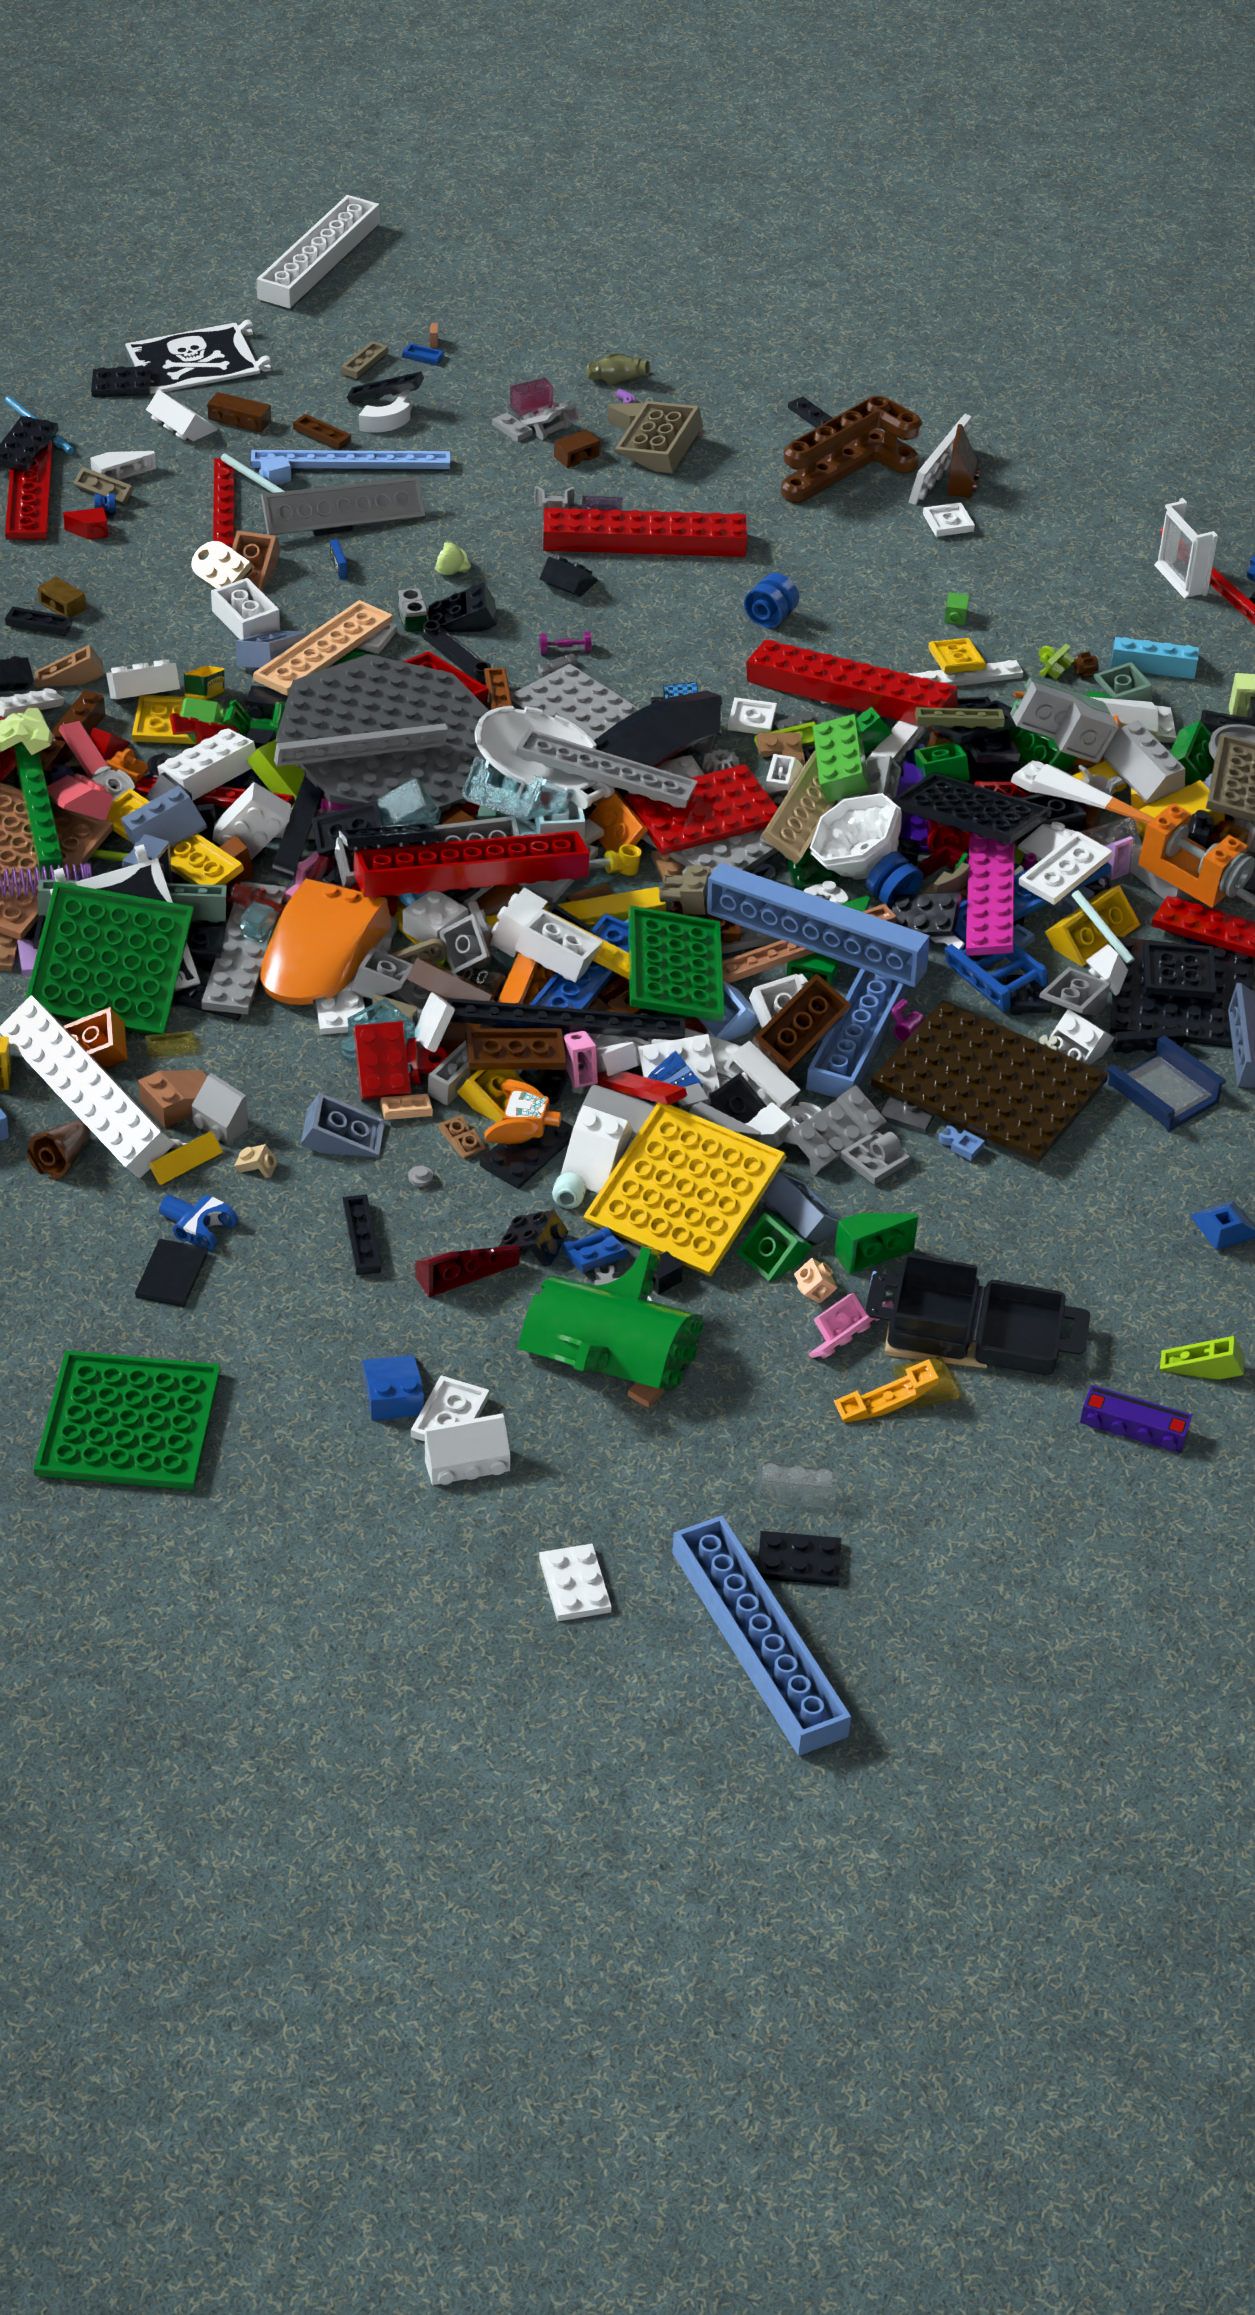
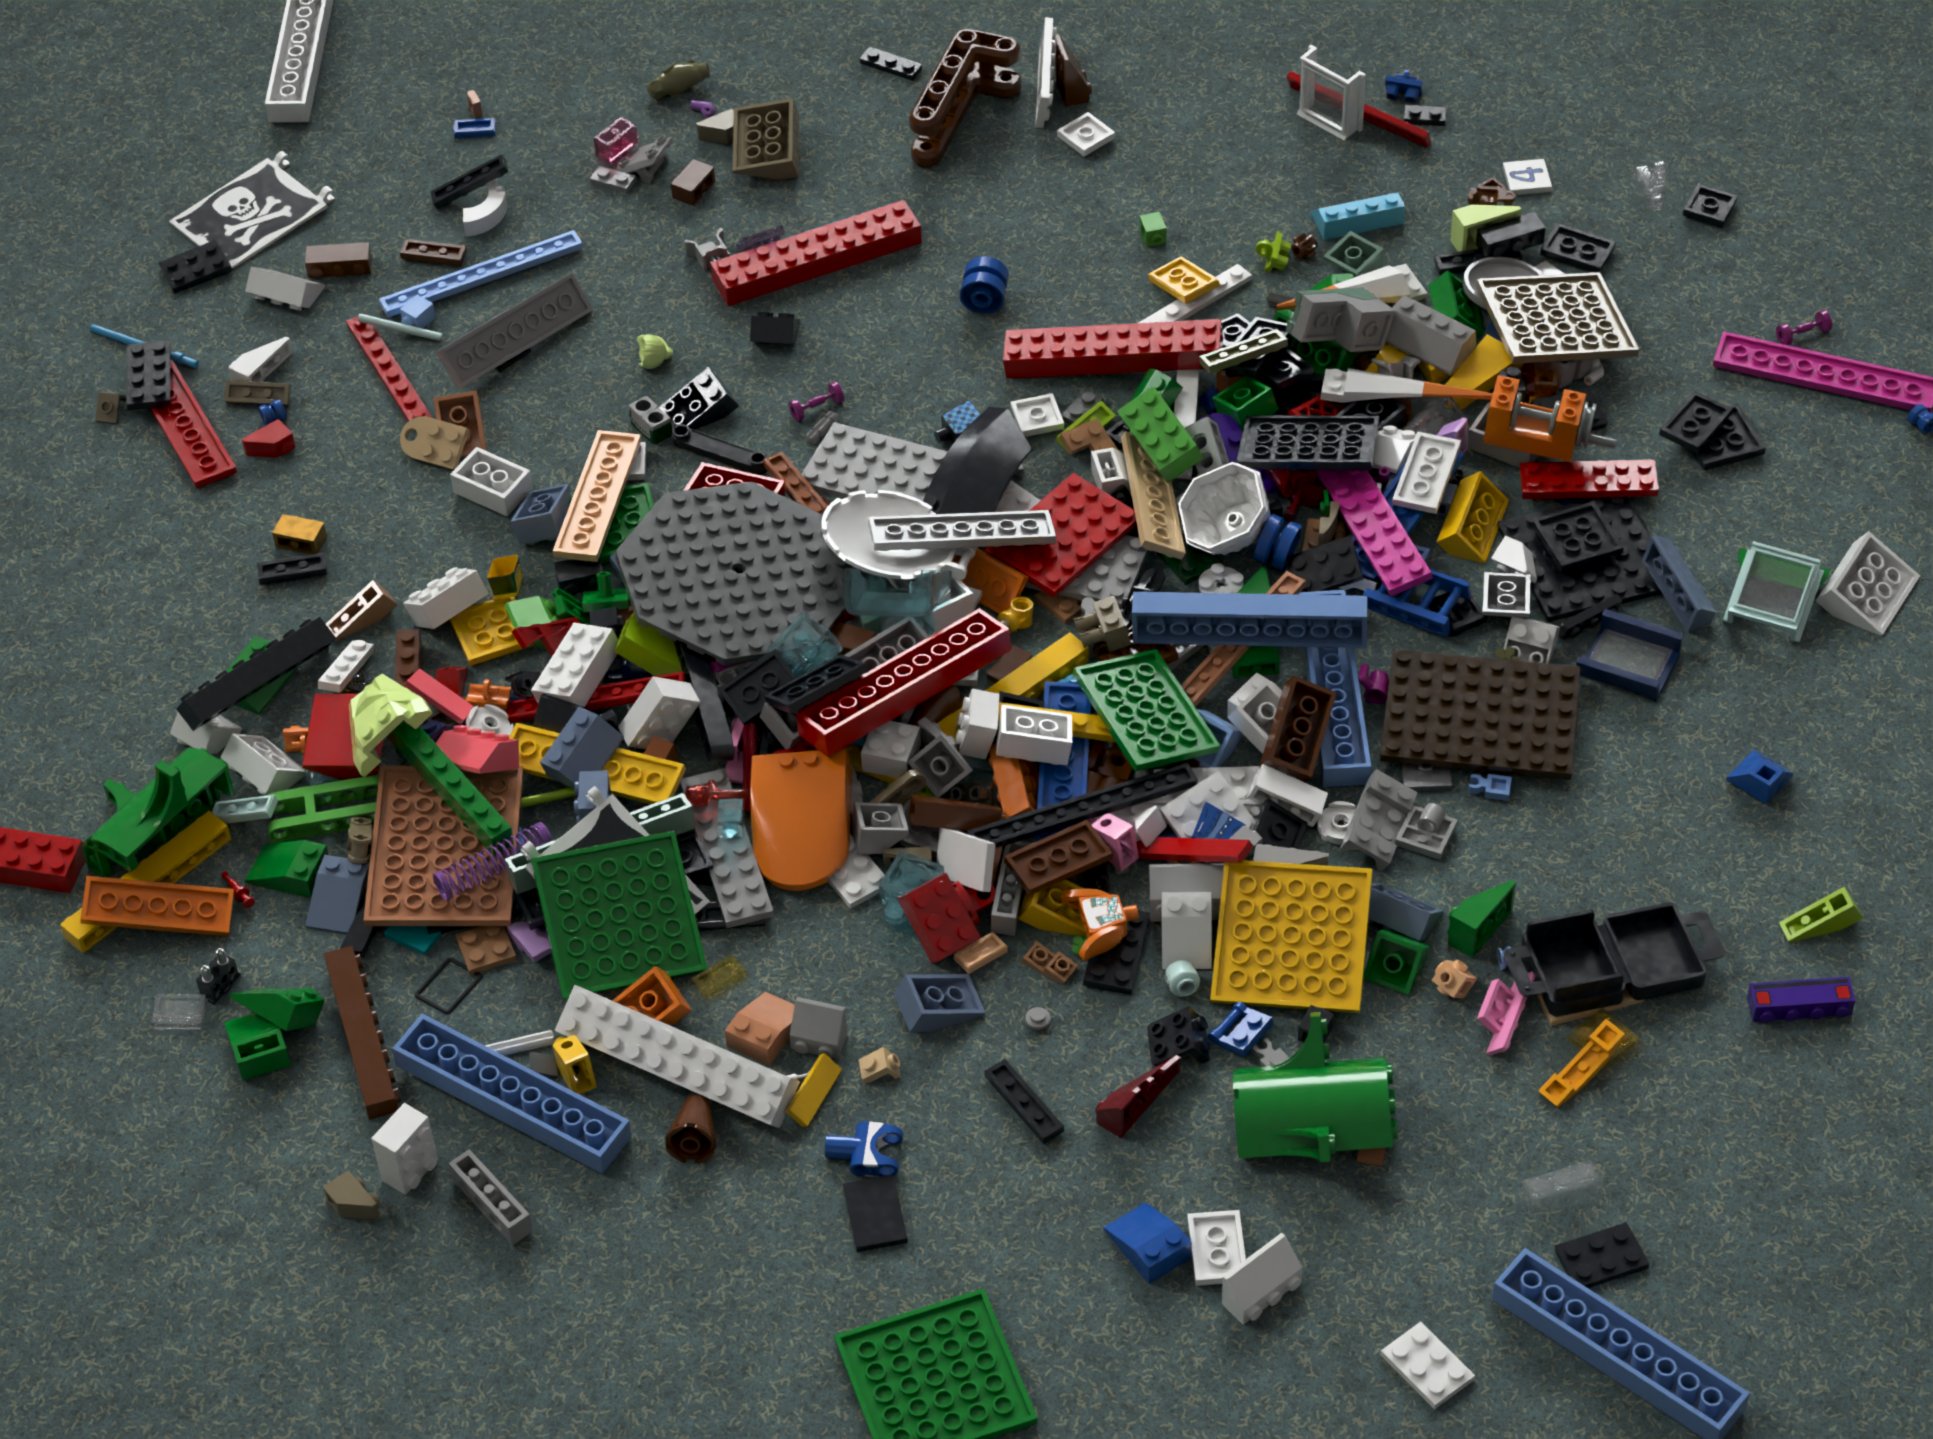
camera: 20 degrees left, 5 degrees up
(338, 559) = (542, 390): blue tile -> none
(360, 744) = (725, 596): light grey plate -> none
(364, 359) = (422, 155): dark tan plate -> none
(719, 760) = (1041, 478): light grey gear -> none
(772, 1124) = (1323, 837): white slope -> none
(1103, 927) = (1488, 518): light aqua bar -> none

